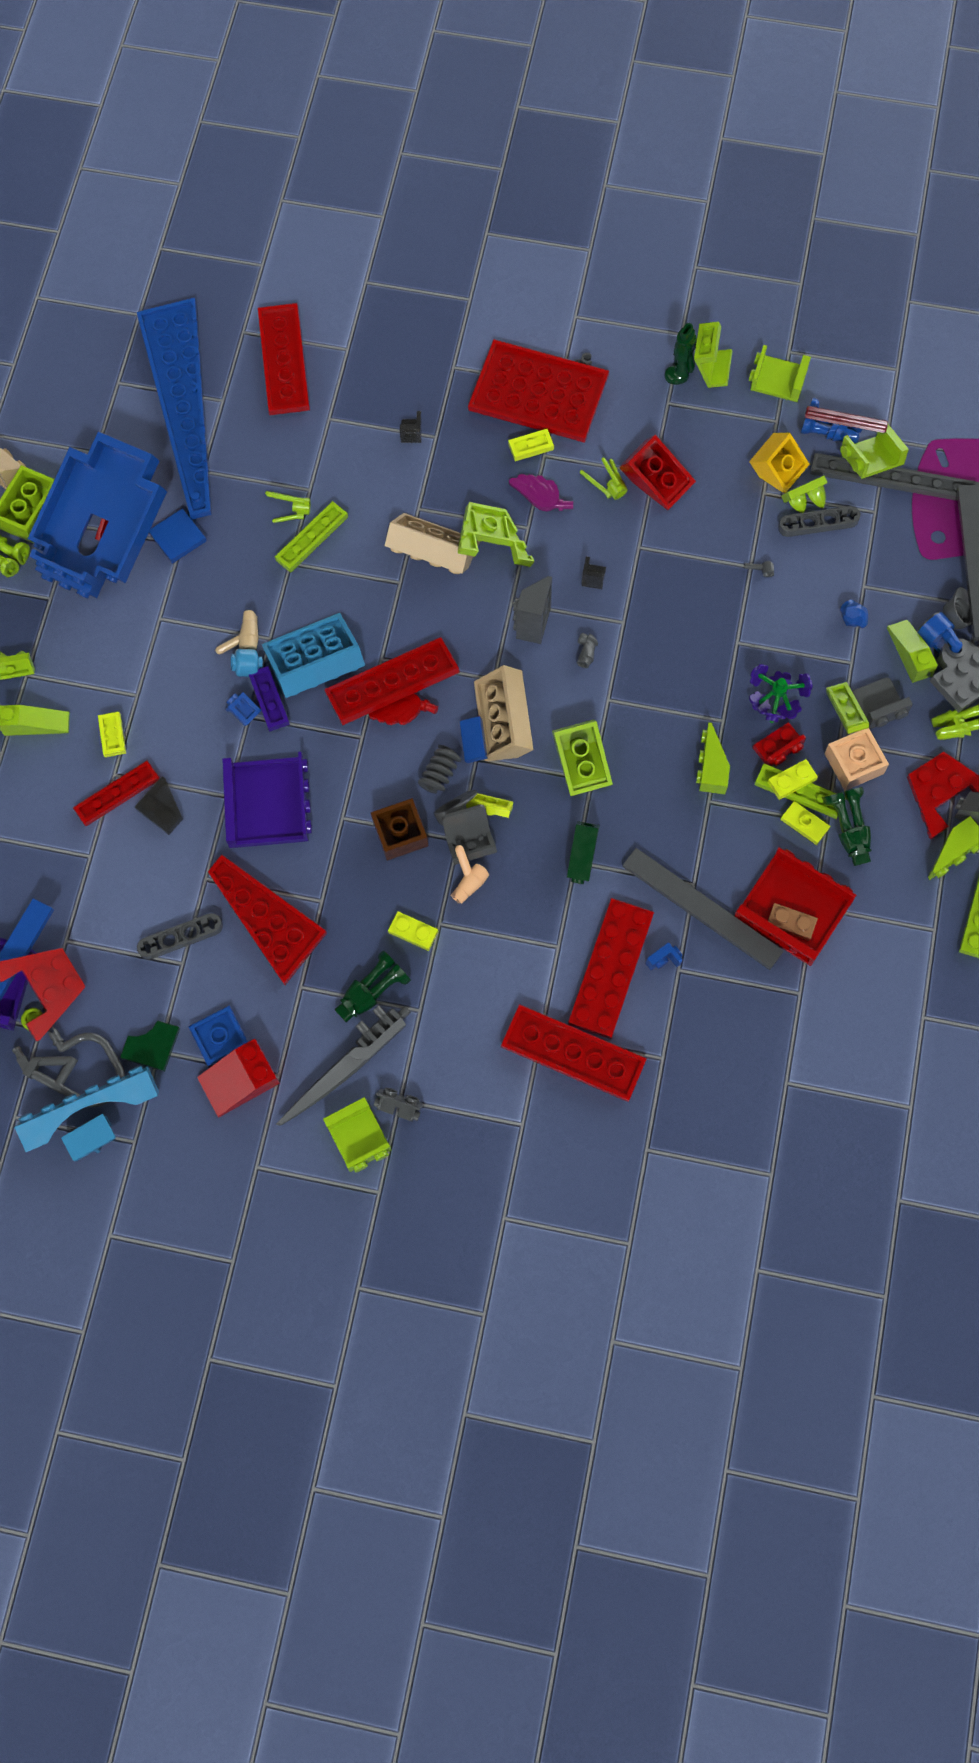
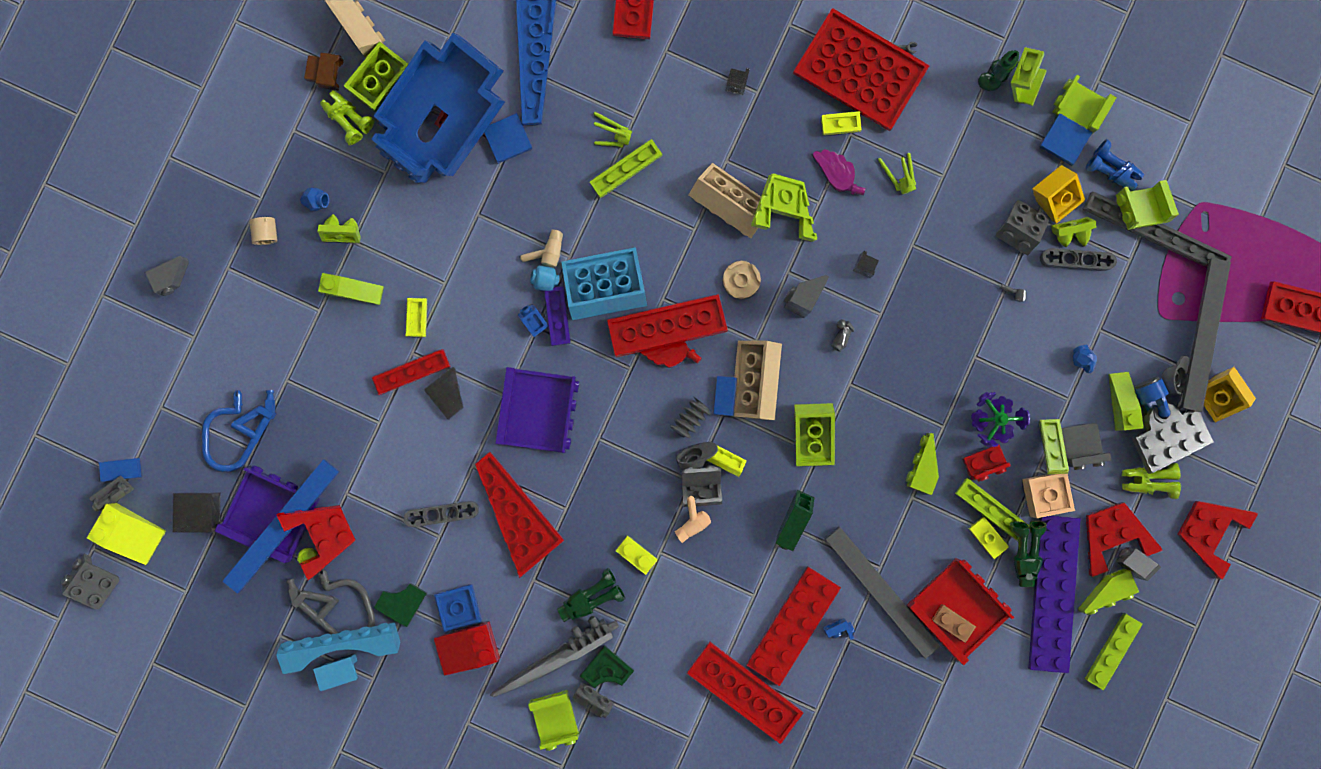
camera: 10 degrees right, 15 degrees up
(399, 829) = (644, 466): reddish brown brick -> none
(407, 1064) = (606, 668): none -> dark green tile
(462, 620) = (741, 279): none -> tan tile
(657, 472) = (947, 178): red slope -> none
(750, 503) = (1023, 227): none -> dark grey bracket
(771, 411) = (1065, 139): none -> blue tile
(792, 779) = (988, 500): neon yellow plate -> none
(846, 419) = (1131, 171): axle -> none
(897, 868) = (1055, 596): none -> dark purple plate

